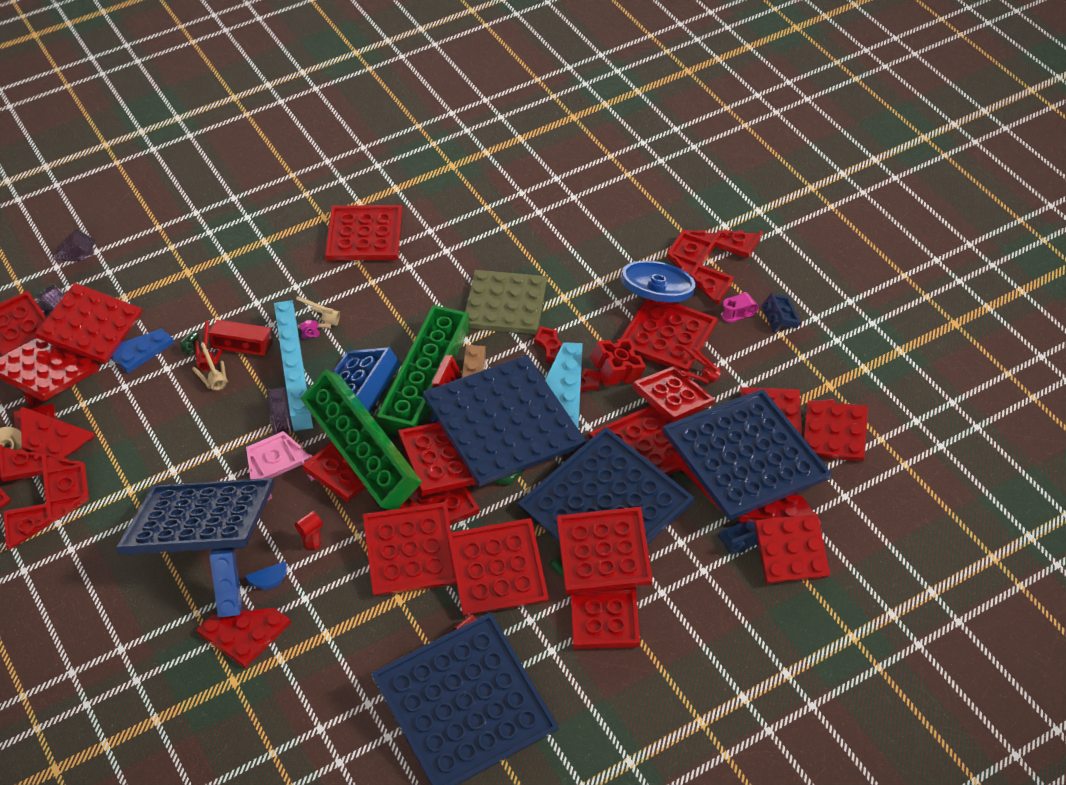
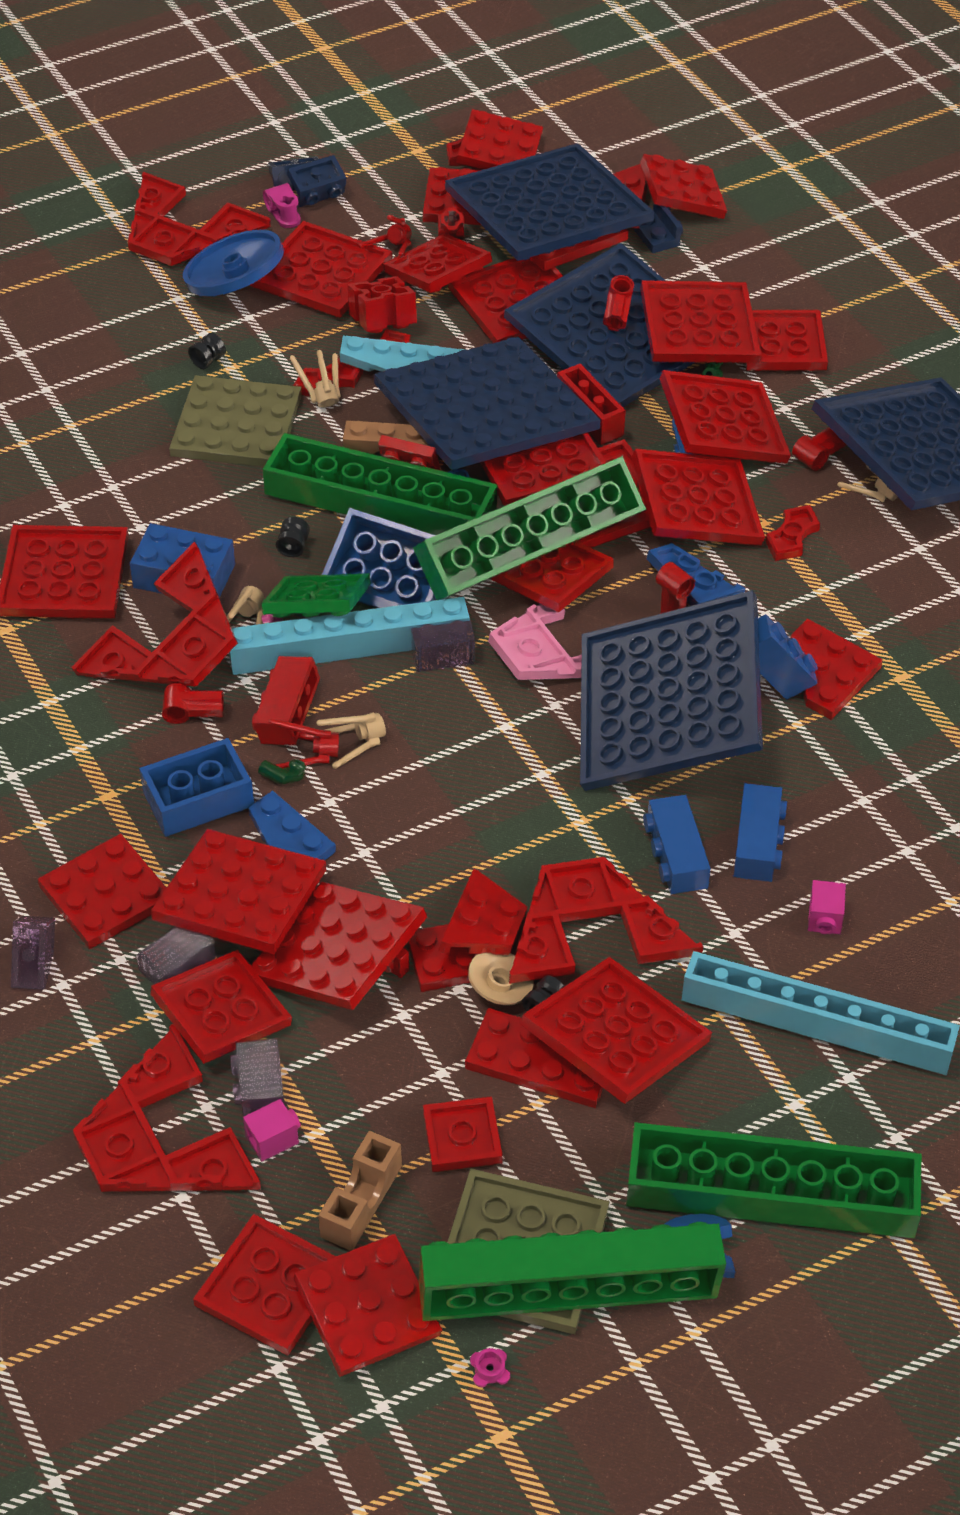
camera: 90 degrees left, 0 degrees up
(22, 615) = (826, 907): none -> dark pink brick
(90, 535) = (677, 844): none -> blue brick
(93, 579) = (760, 832): none -> blue brick
(115, 274) = (103, 890): none -> red plate
(173, 301) = (196, 787): none -> blue brick
(246, 293) = (182, 703): none -> red piece
(279, 286) = (187, 651): none -> red wing
(320, 341) = (316, 594): none -> green plate
(335, 550) = (708, 584): none -> blue wing
(363, 282) = (165, 544): none -> blue brick
(389, 333) = (292, 537): none -> black wheel
(393, 620) = (788, 538): none -> red tile
(512, 485) = (598, 400): none -> red brick
(528, 340) = (325, 393): none -> tan plant
(571, 279) = (206, 351): none -> black wheel
(613, 493) = (618, 302): none -> red piece
(716, 395) = (451, 222): none -> red piece
(763, 321) = (318, 180): none -> dark blue bracket

